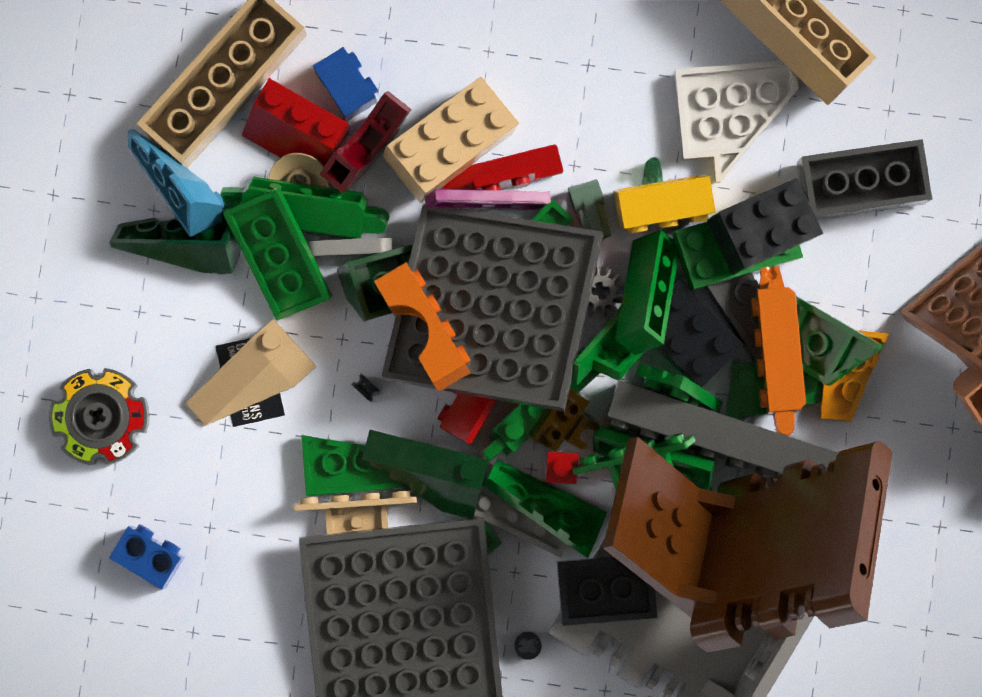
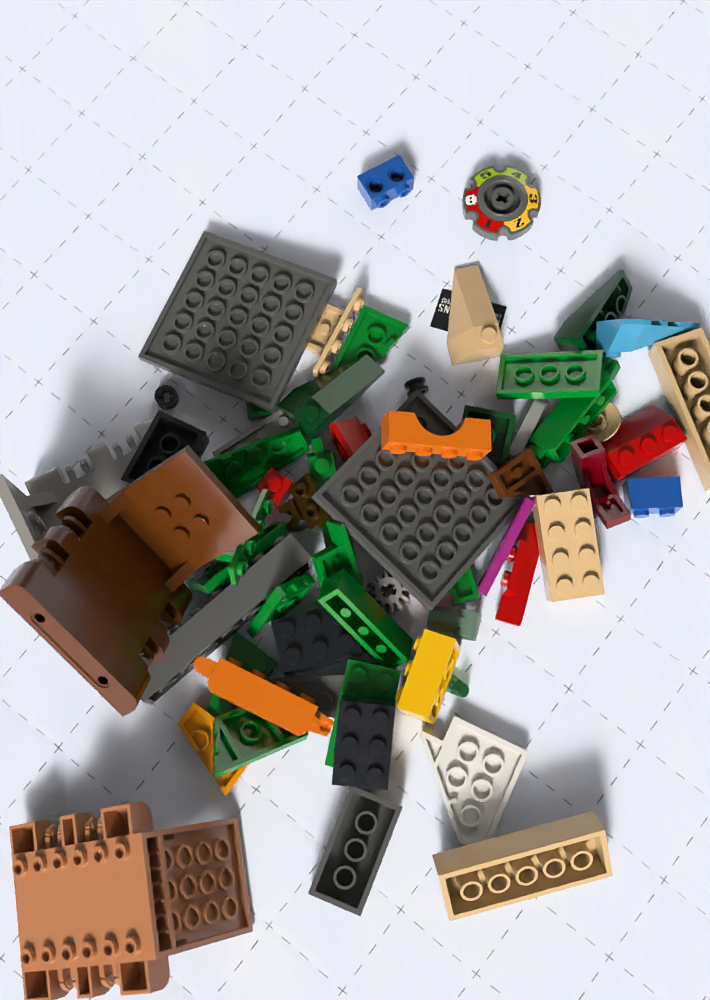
camera: 125 degrees right, 10 degrees down
(410, 222) = (520, 477): none -> reddish brown wing

